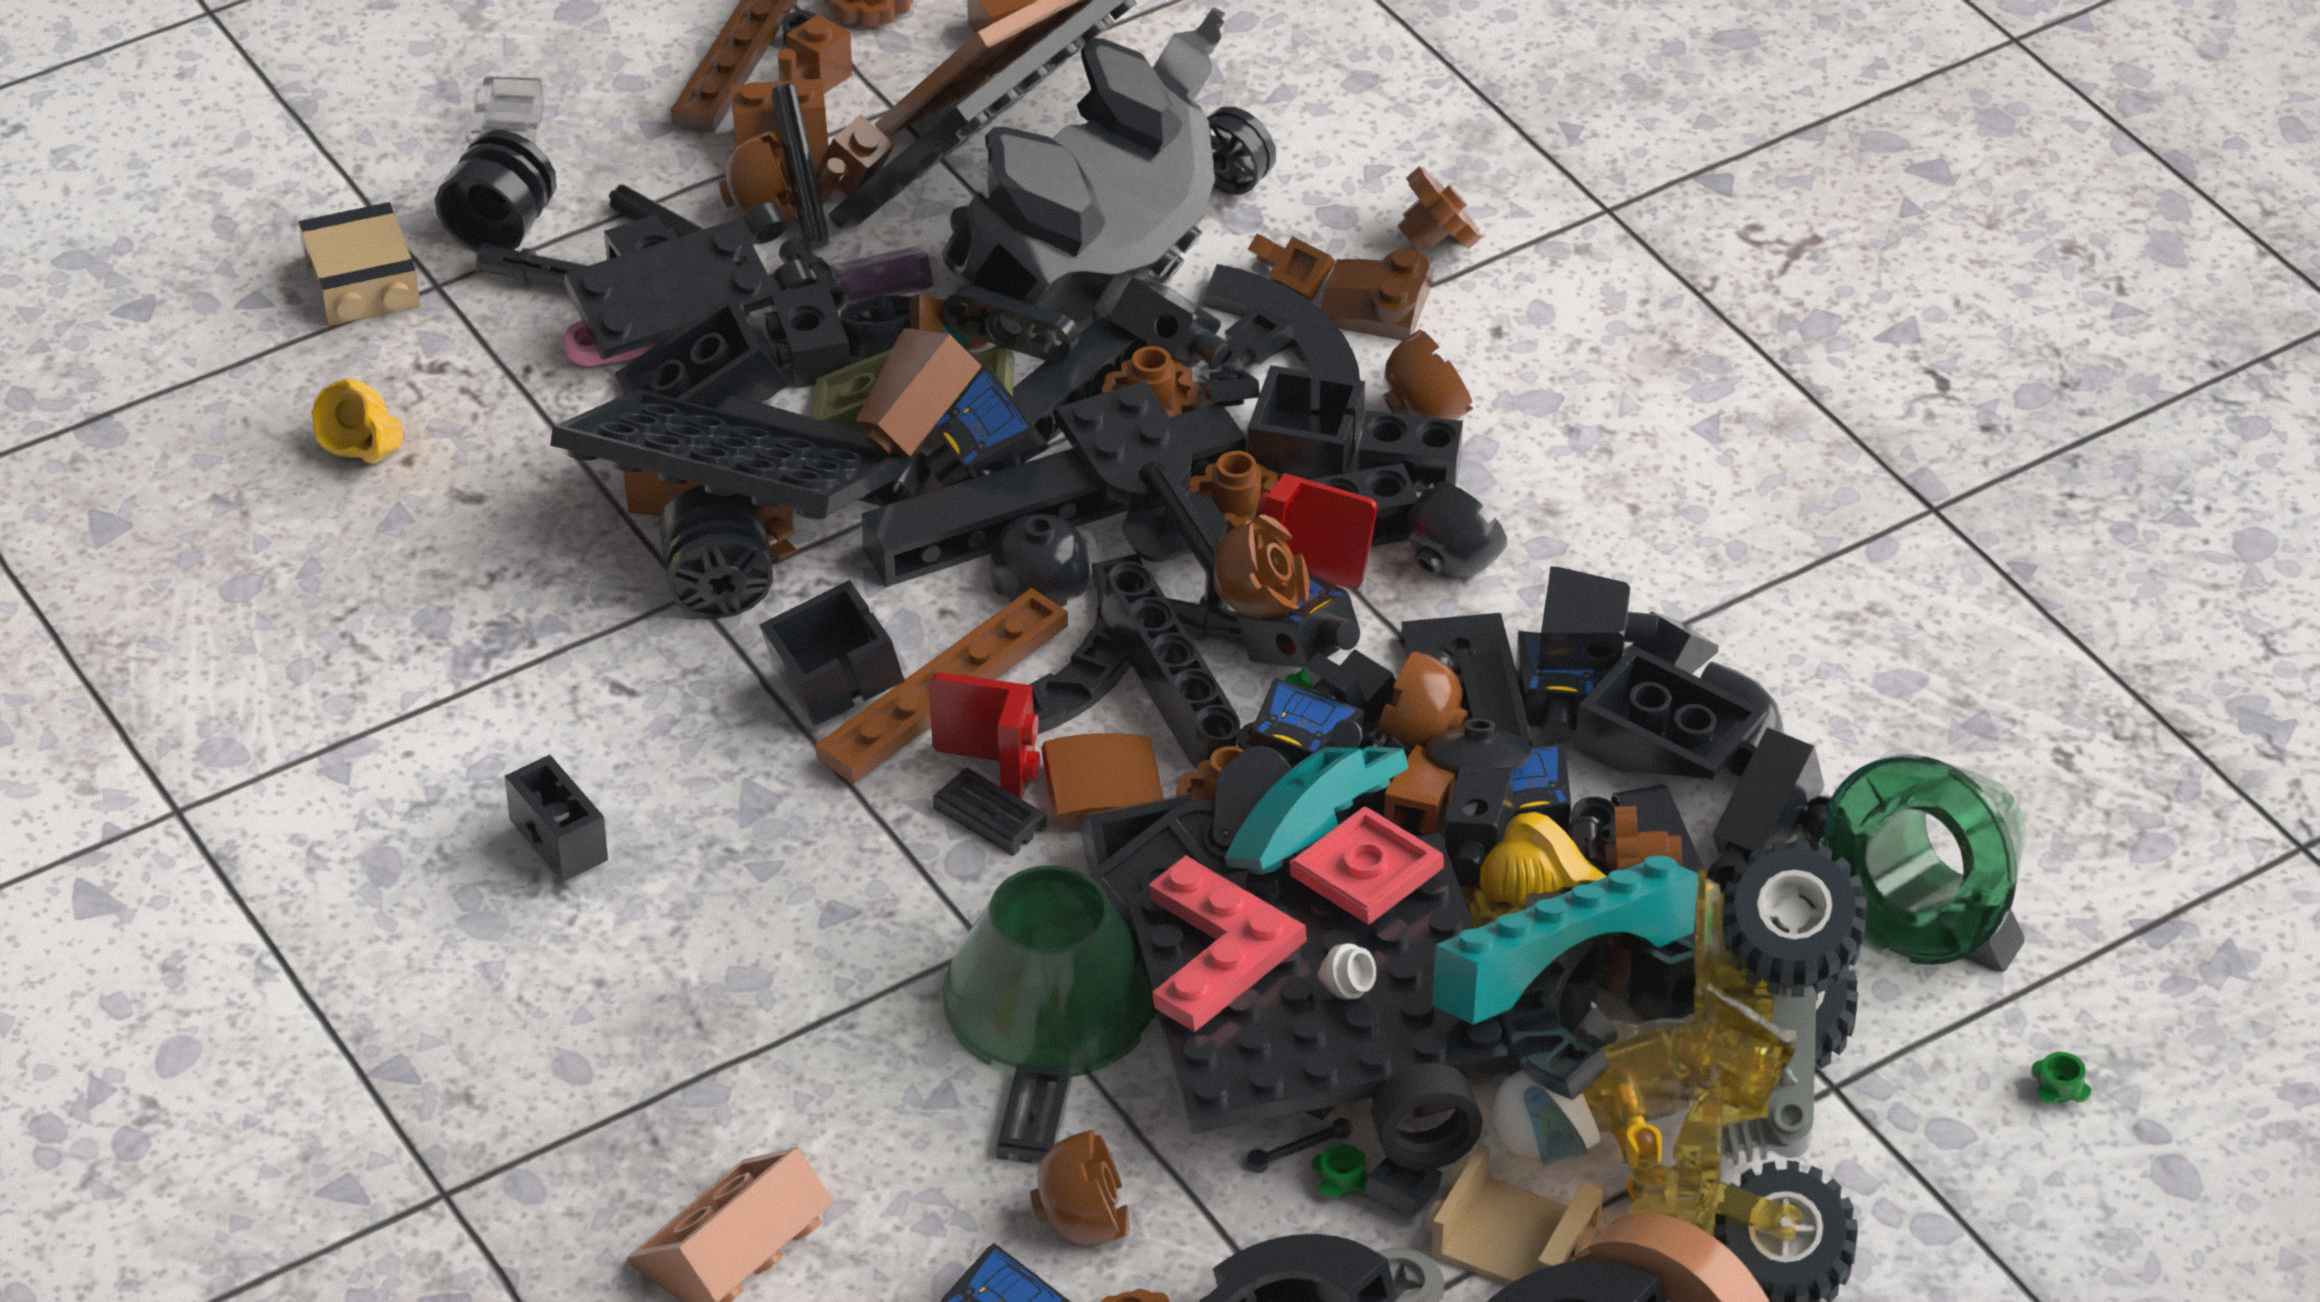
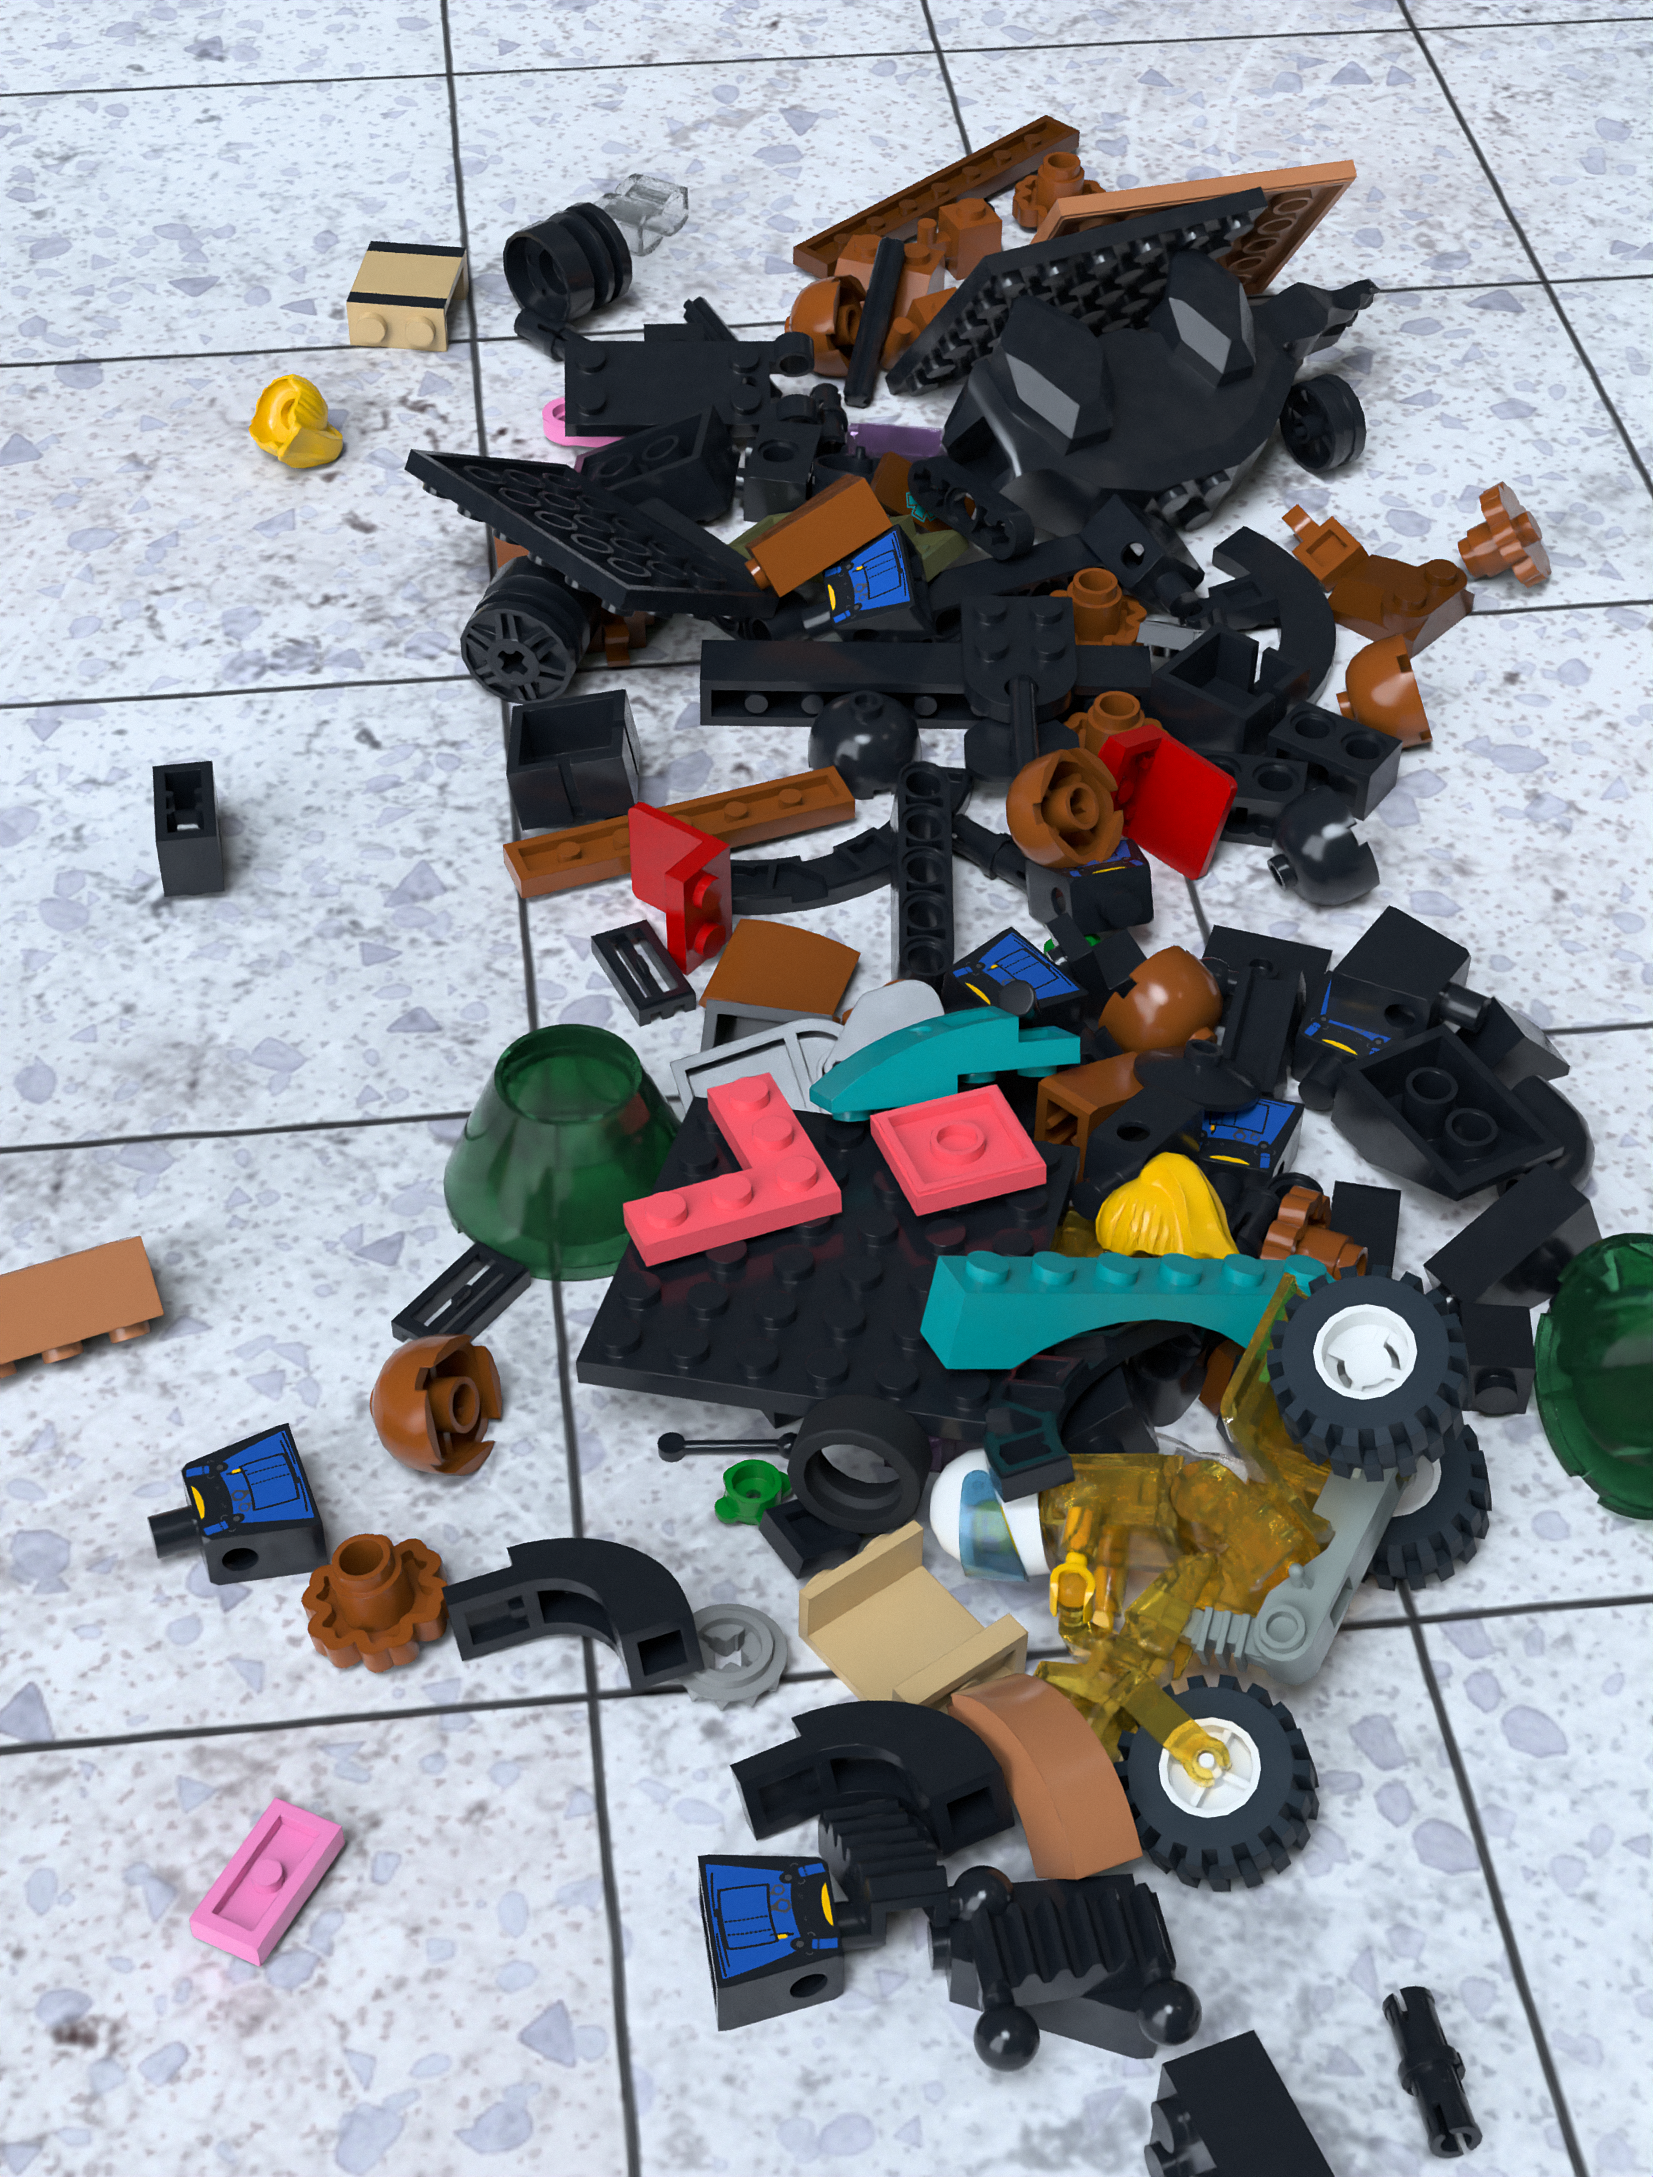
camera: 25 degrees right, 0 degrees up
(1348, 971) = (849, 1257): white plate -> none

